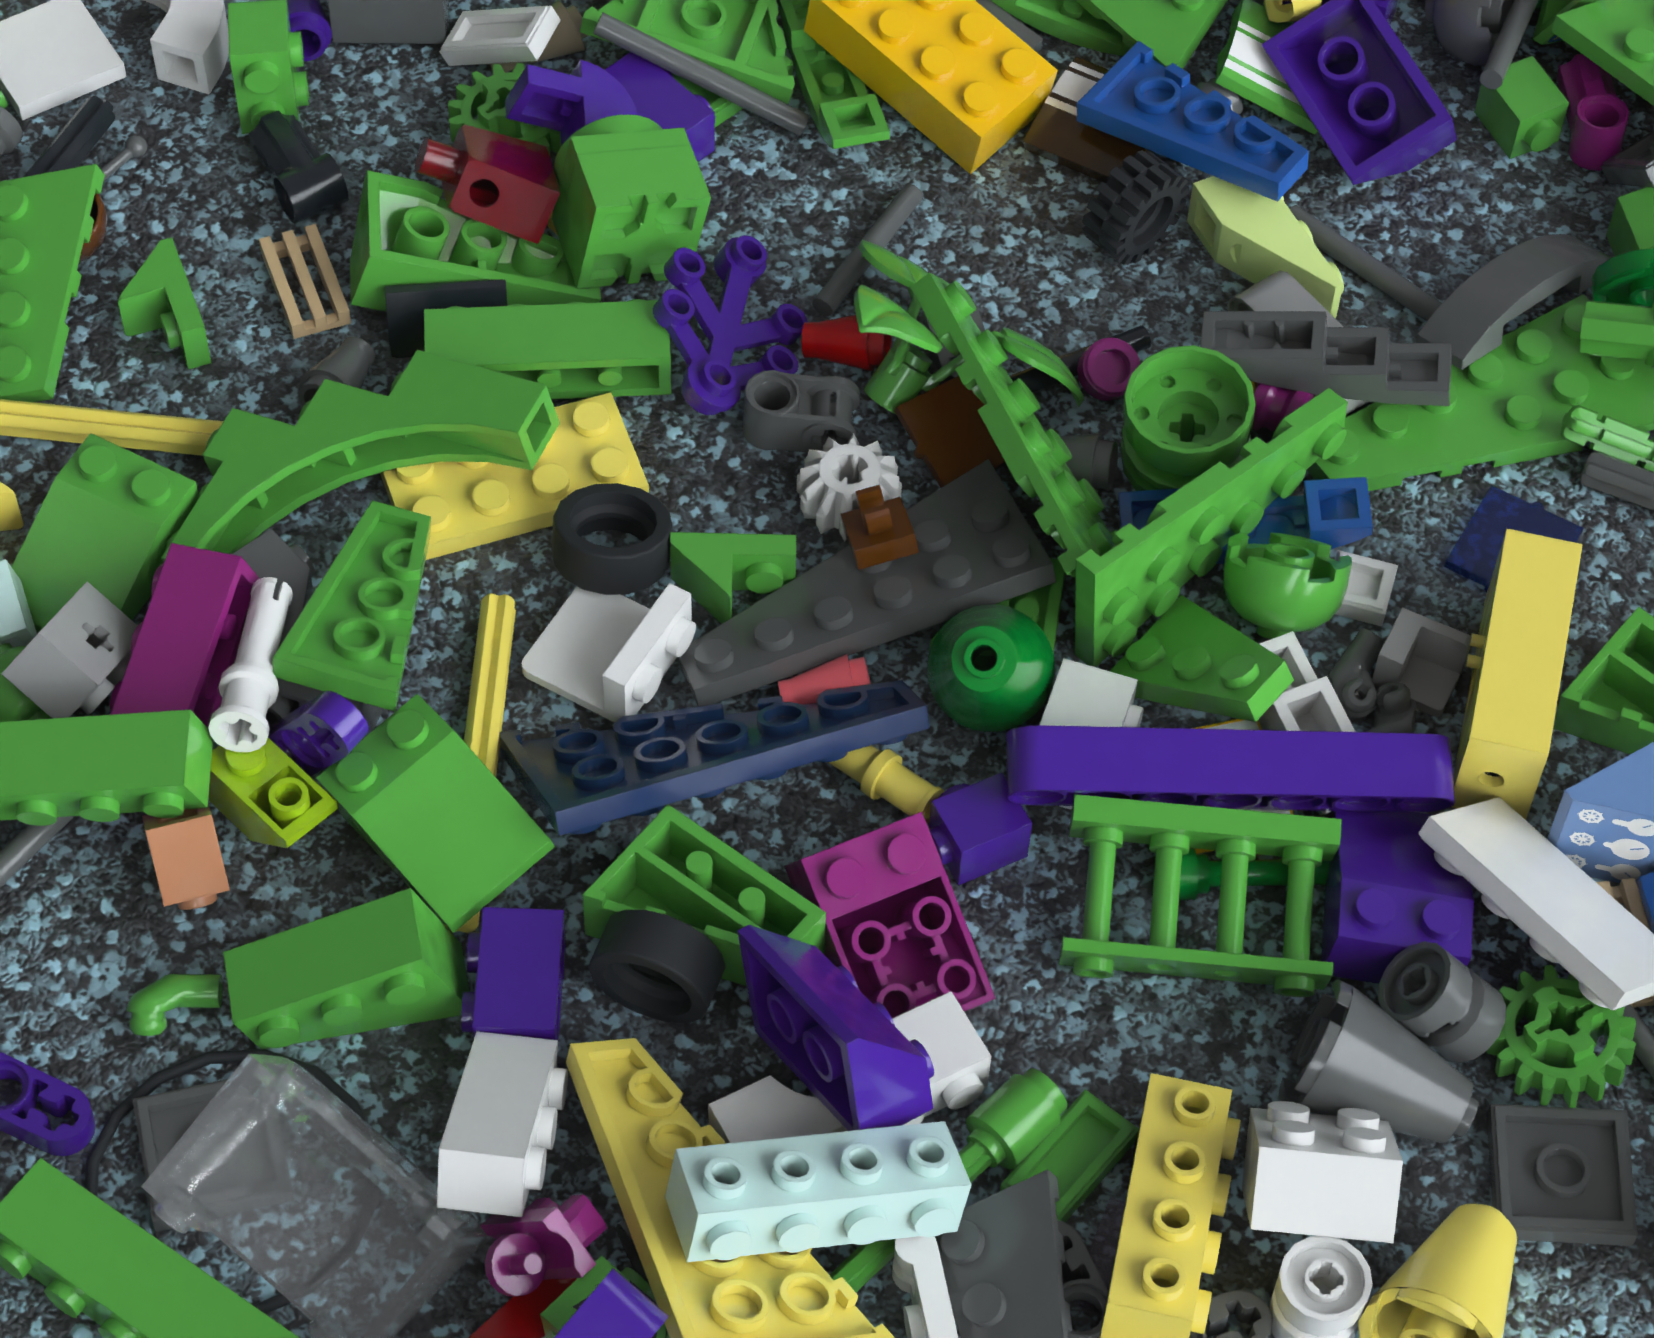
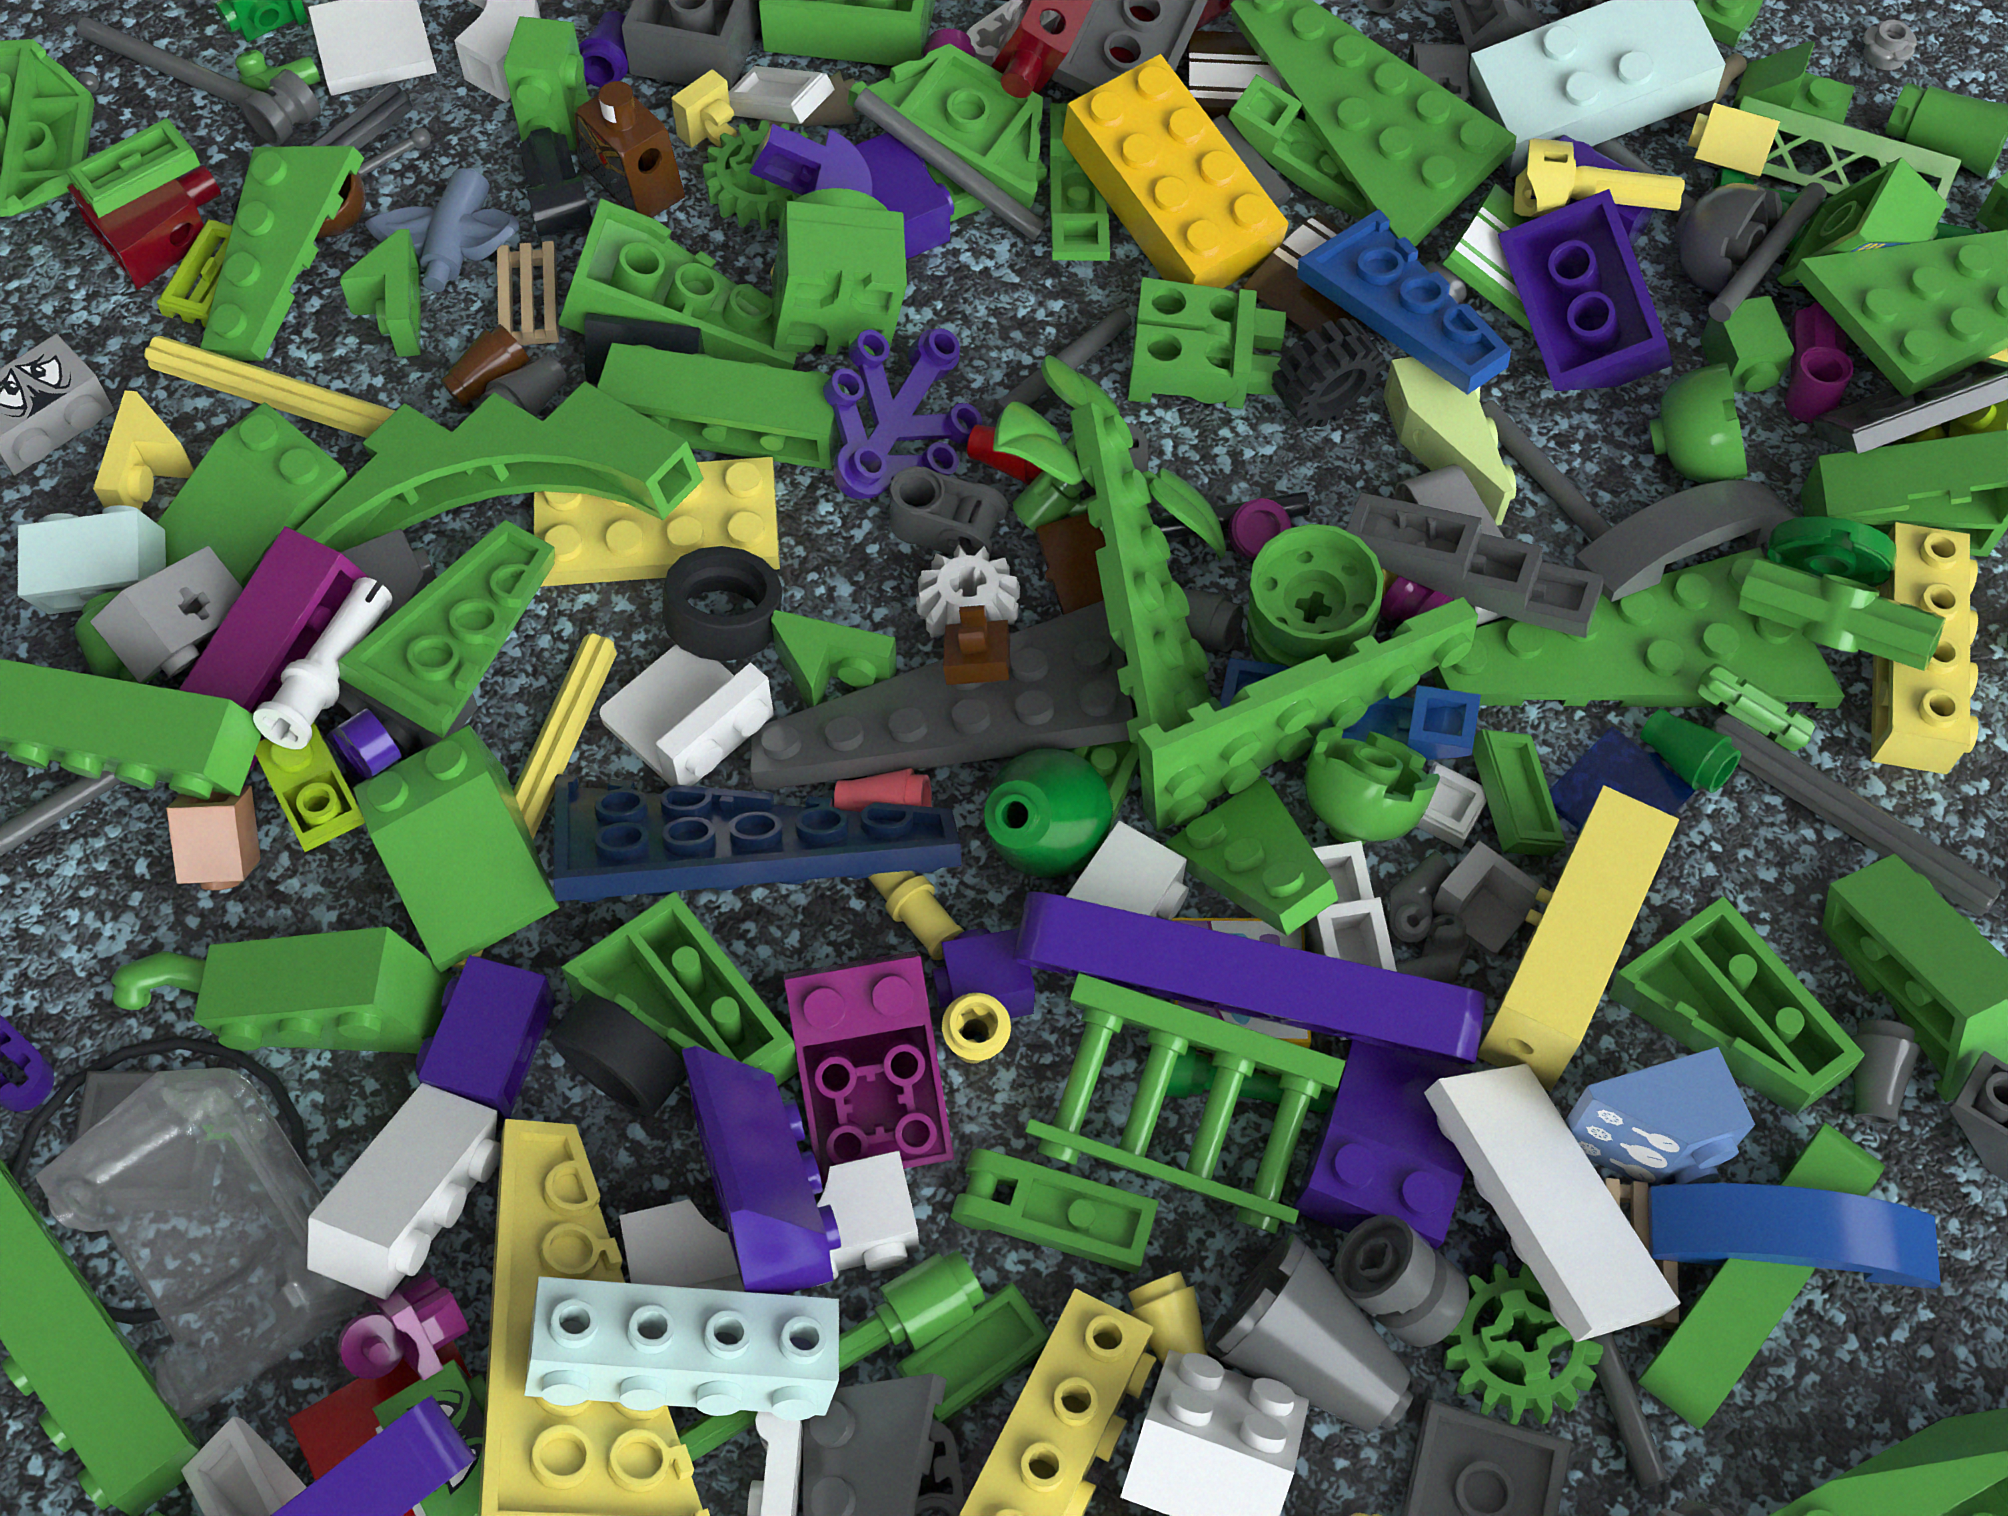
camera: 15 degrees right, 5 degrees up
(204, 230) = (450, 230): none -> sand blue plant
(290, 354) = (486, 359): none -> reddish brown cone
(365, 117) = (619, 135): none -> reddish brown torso
(428, 66) = (703, 110): none -> light yellow tile
(494, 179) = (718, 229): dark red torso -> none
(987, 871) = (980, 1014): none -> light yellow cone
(1000, 203) = (1202, 343): none -> bright green hips
(1106, 1018) = (1057, 1210): none -> bright green plate
(1243, 1074) = (1172, 1312): none -> light yellow cone
(1422, 562) = (1517, 793): none -> bright green tile
(1501, 191) = (1701, 426): none -> bright green cylinder
(1572, 491) = (1693, 751): none -> green cone

